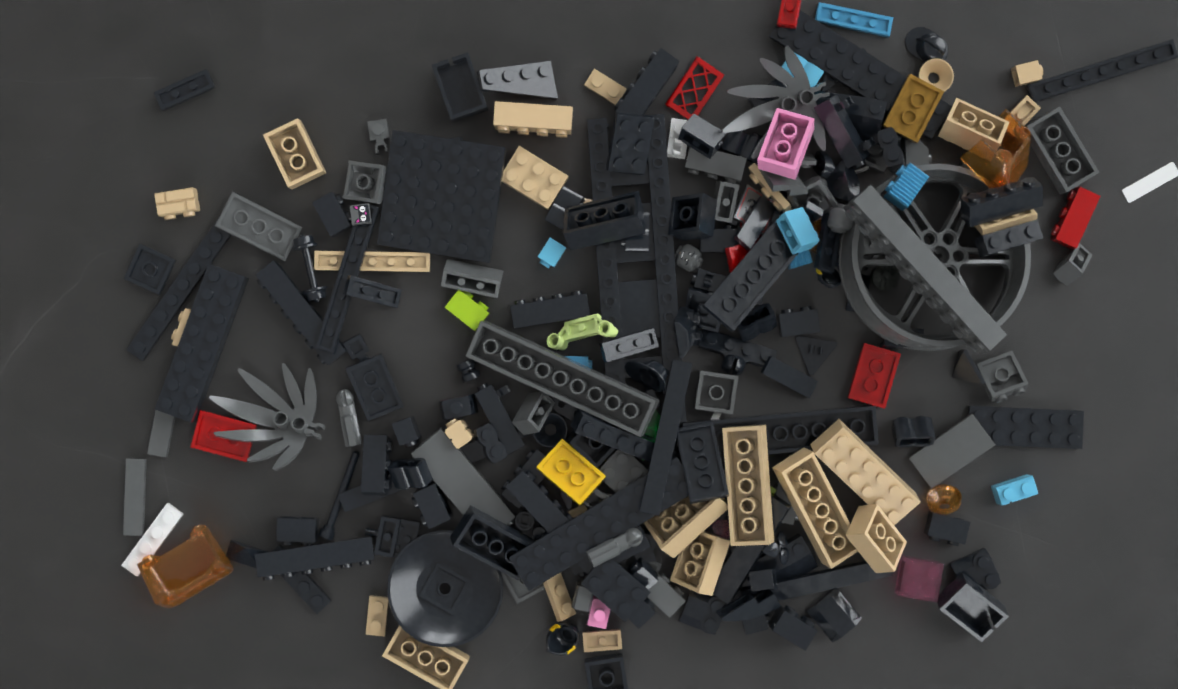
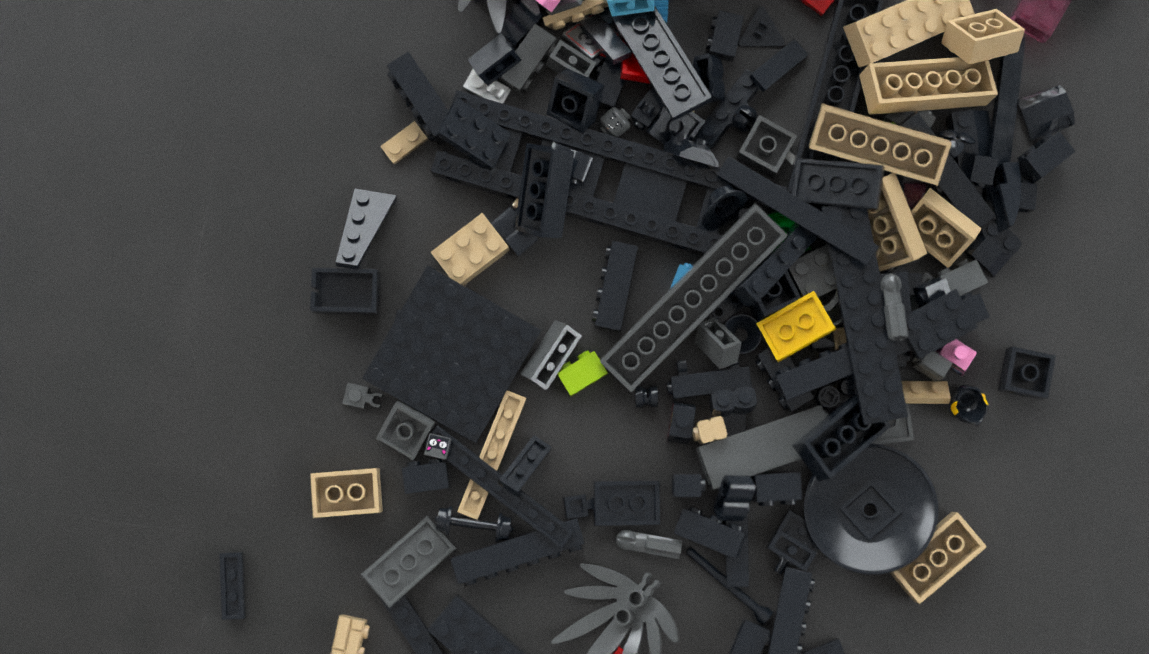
camera: 65 degrees left, 5 degrees down
(377, 615) = (872, 595): tan plate -> none
(533, 118) = (408, 226): tan brick -> none
(551, 253) = (556, 262): medium azure brick -> none
(581, 329) = (648, 259): yellowish green plate -> none
(602, 640) = (985, 364): tan plate -> none
(628, 345) = (684, 215): plate -> none
(689, 74) = (449, 37): red window -> none

